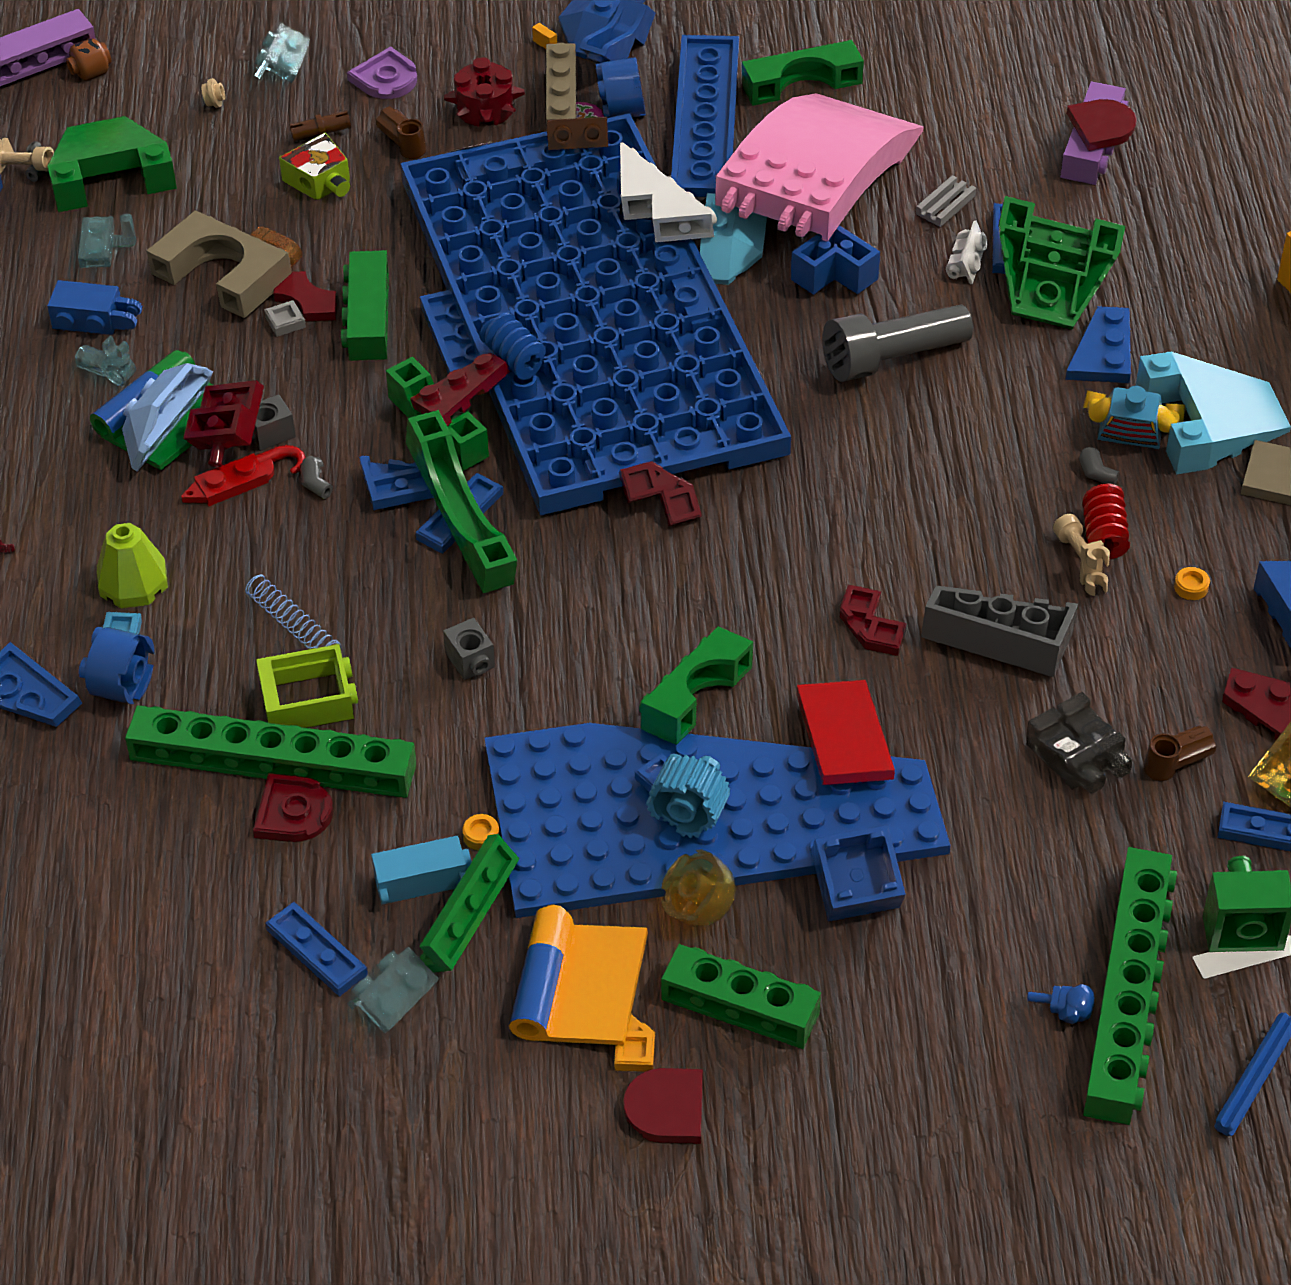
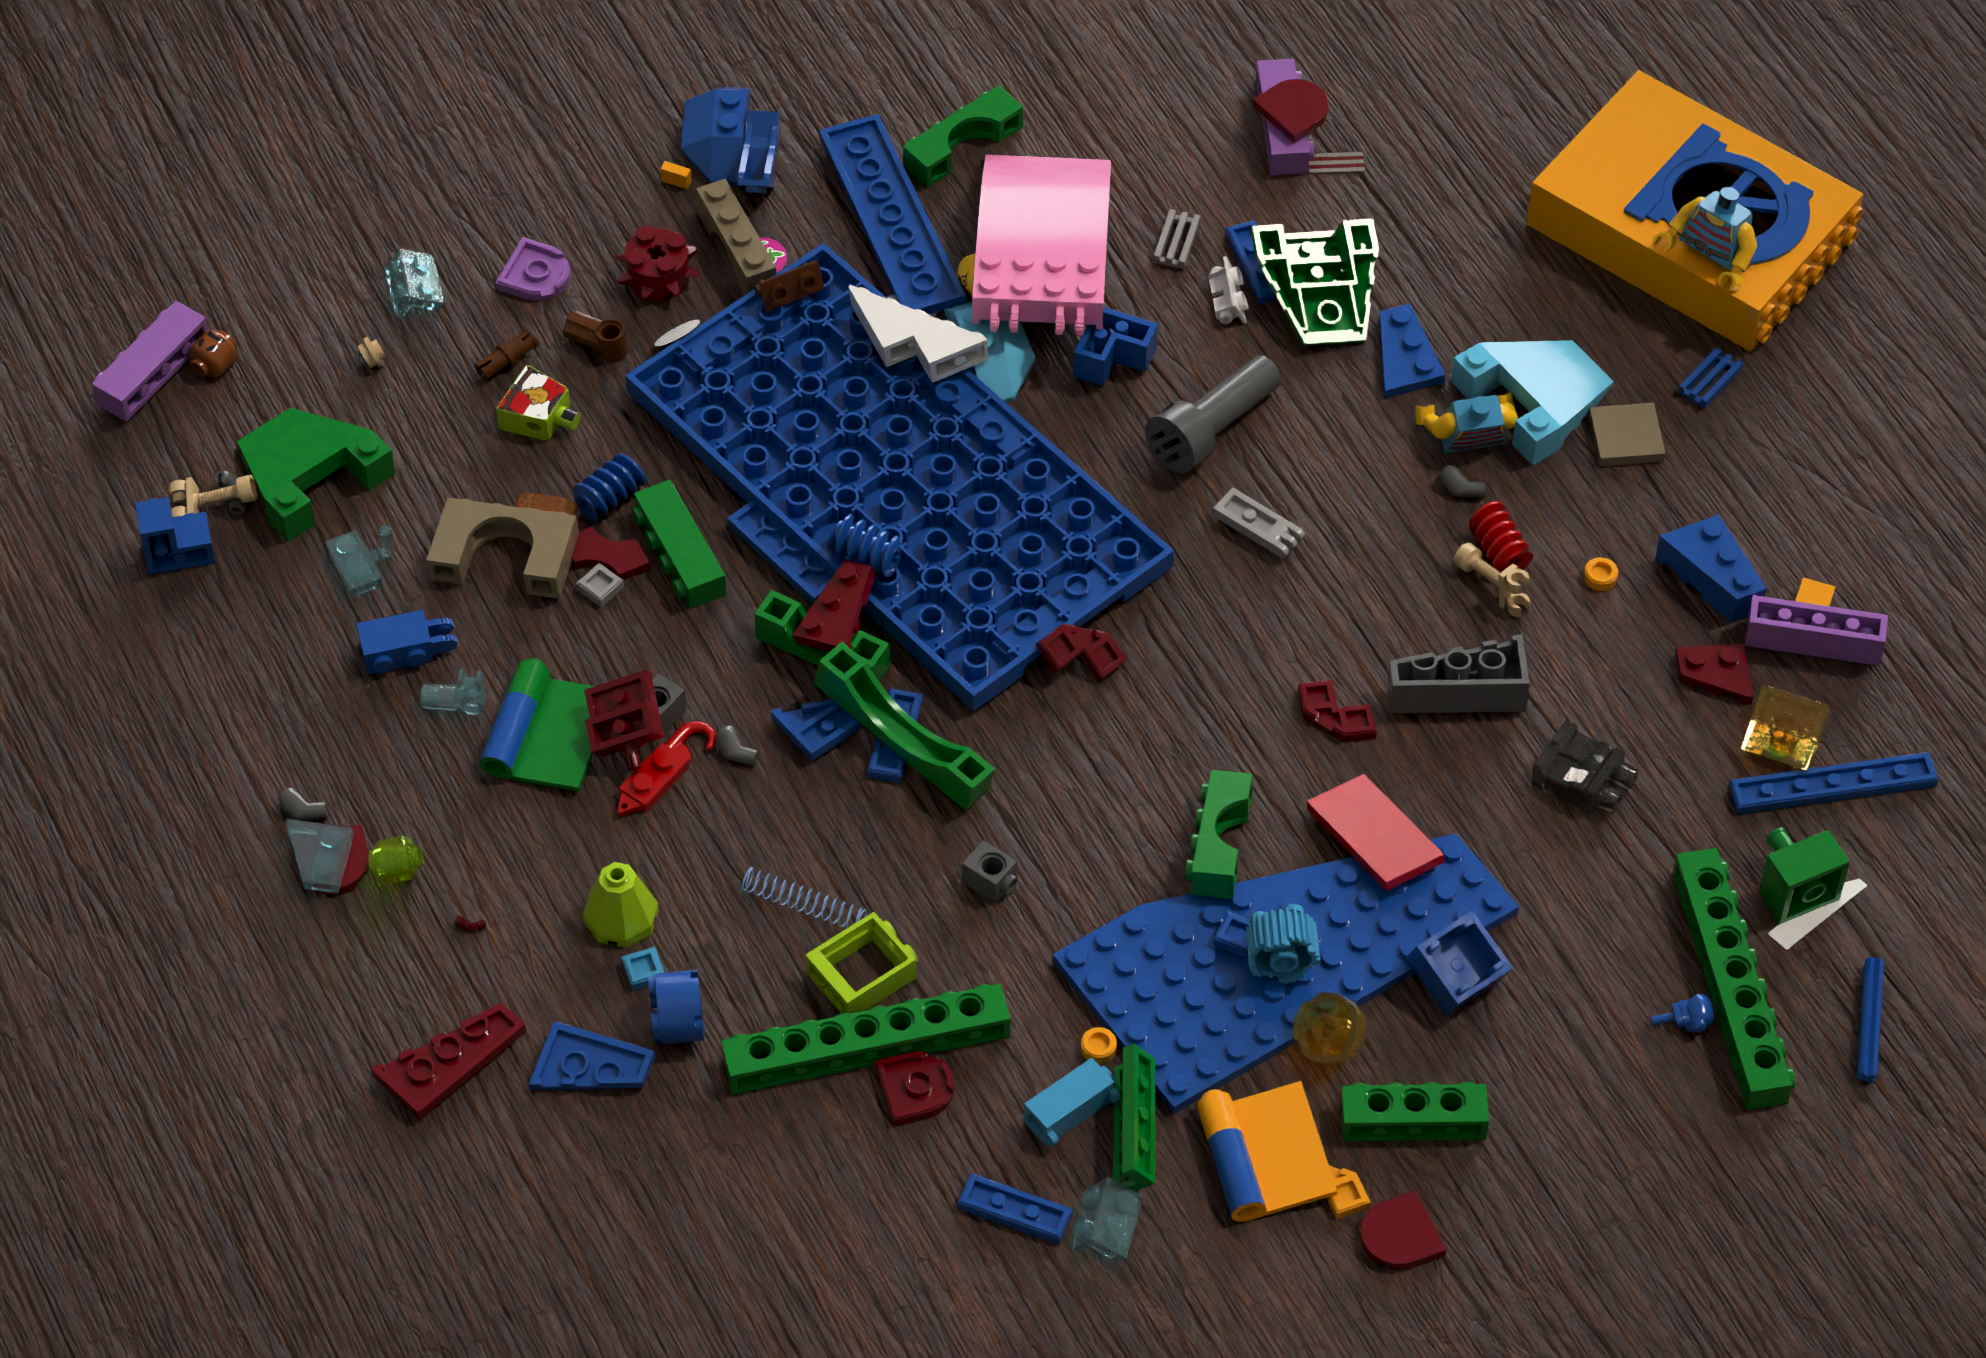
camera: 25 degrees left, 5 degrees up
(161, 409) = (552, 734): light blue wedge -> none
(335, 242) = (606, 485): none -> blue piece
(620, 88) = (798, 216): blue brick -> none
(887, 441) = (1258, 523): none -> light grey hinge
(1126, 183) = (1337, 162): none -> clear smoke sticker
(1174, 751) = (1667, 747): reddish brown piece -> none

